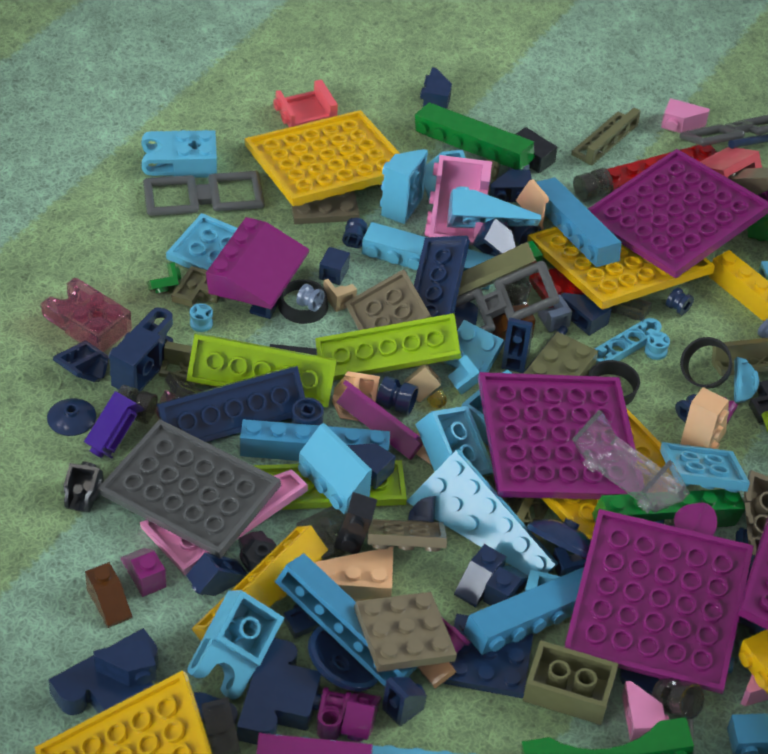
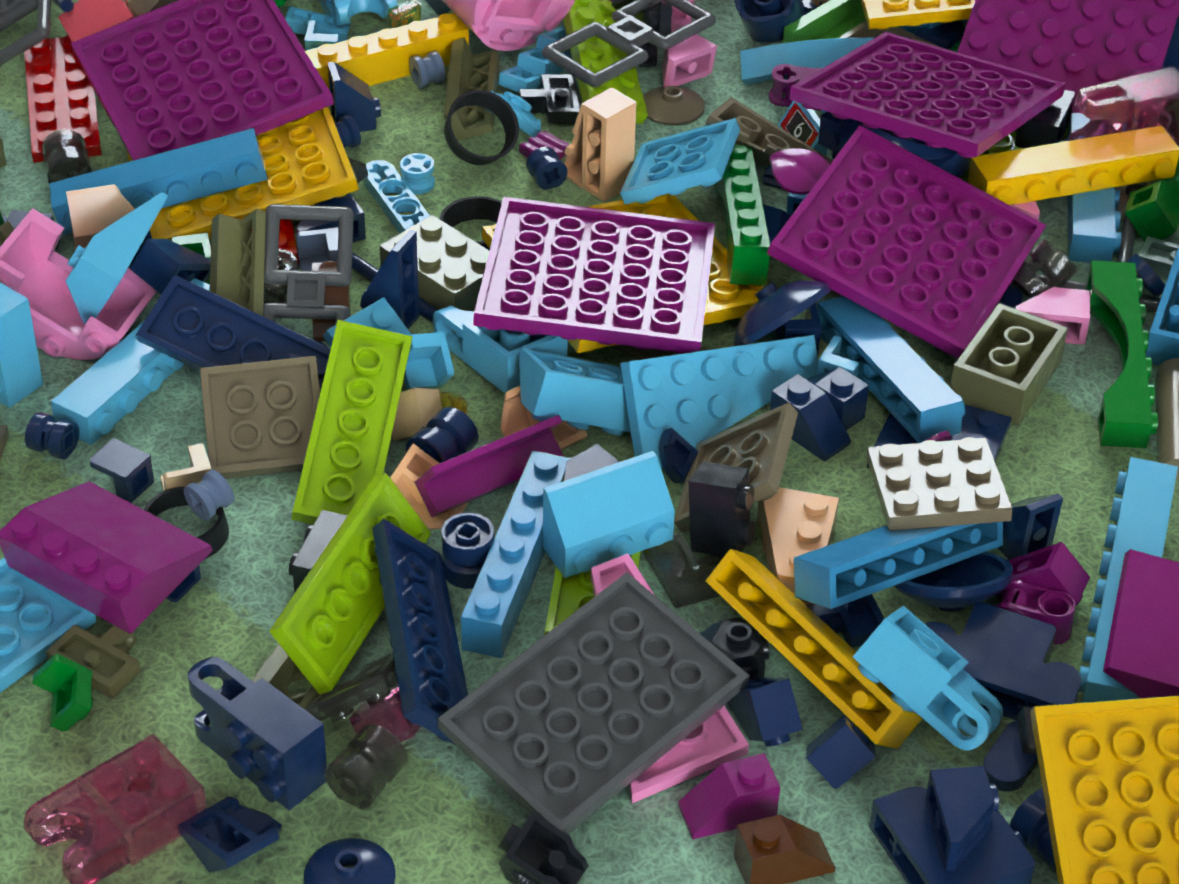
camera: 75 degrees left, 5 degrees down
(112, 425) = (422, 793): dark purple window -> none
(187, 615) = (840, 751): none -> dark blue panel
(201, 317) = (176, 647): medium azure wheel -> none
(627, 468) = (718, 197): clear windscreen -> none
(709, 295) = (352, 98): none -> dark blue slope

